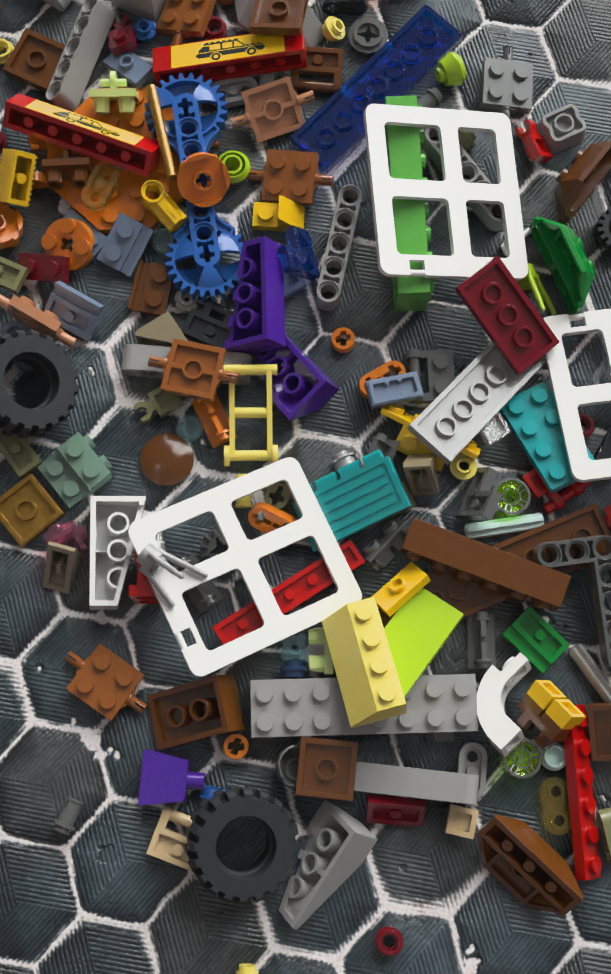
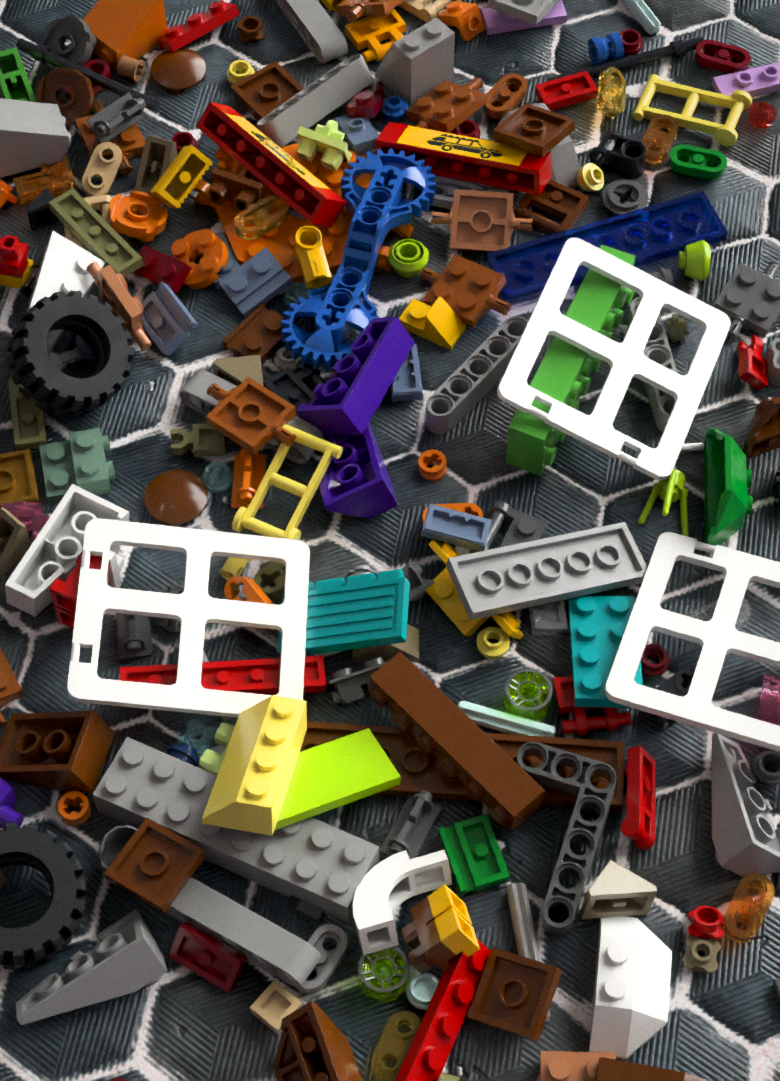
camera: 30 degrees right, 20 degrees down
(155, 558) = (95, 558): light grey plant -> none
(161, 132) = (348, 190): pearl gold bar -> none
(209, 165) = (377, 259): orange plate -> none
(298, 256) = (429, 362): clear blue plate -> none
(401, 589) = (346, 723): yellow plate -> none
(422, 474) = (438, 623): dark tan slope -> none
(479, 499) = (490, 677): dark grey plate -> none
(507, 315) = (619, 501): dark red plate -> none

